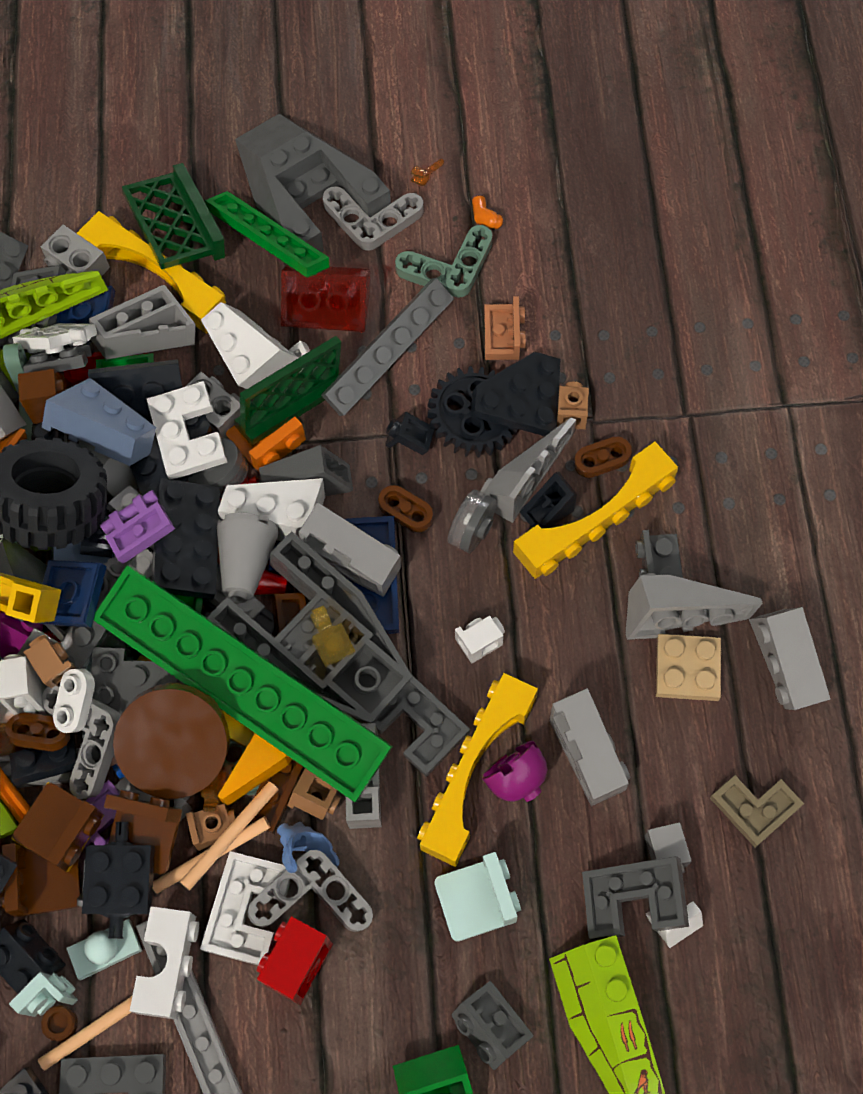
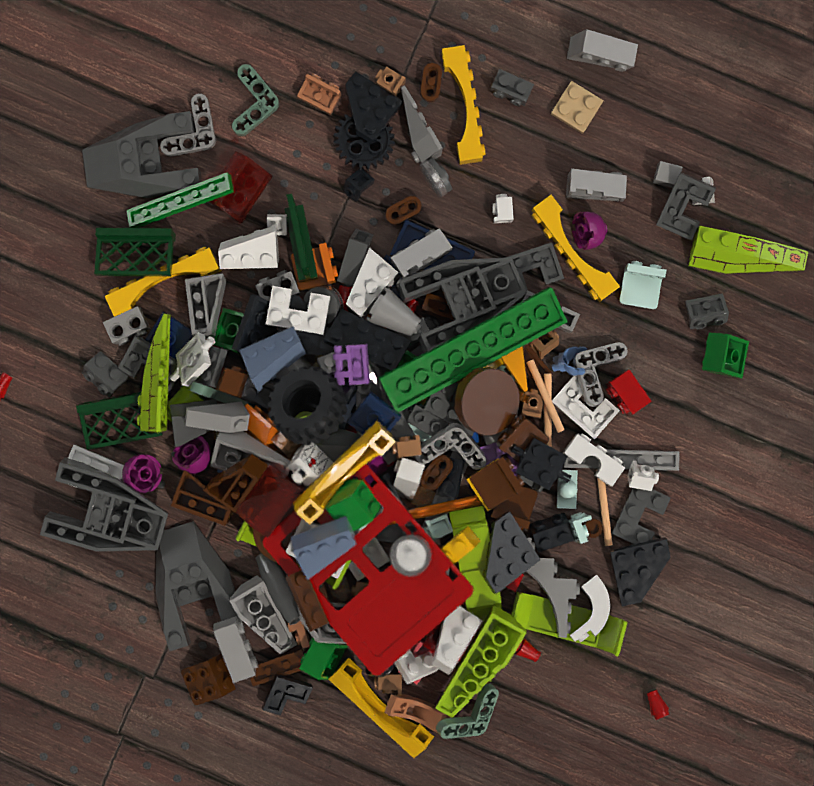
camera: 65 degrees left, 20 degrees up
(73, 704) = (436, 445): white plate -> none
(172, 1058) = (642, 476): none -> white brick
(331, 640) = (474, 290): clear yellow plate -> none
(387, 347) = (293, 166): dark grey plate -> none
(422, 175) = (179, 85): clear orange hand -> none
(485, 216) = (231, 62): orange arm -> none
(550, 503) = (445, 128): black slope -> none
(675, 602) = (540, 96): light grey wedge -> none
(755, 816) = (675, 119): dark tan plate -> none

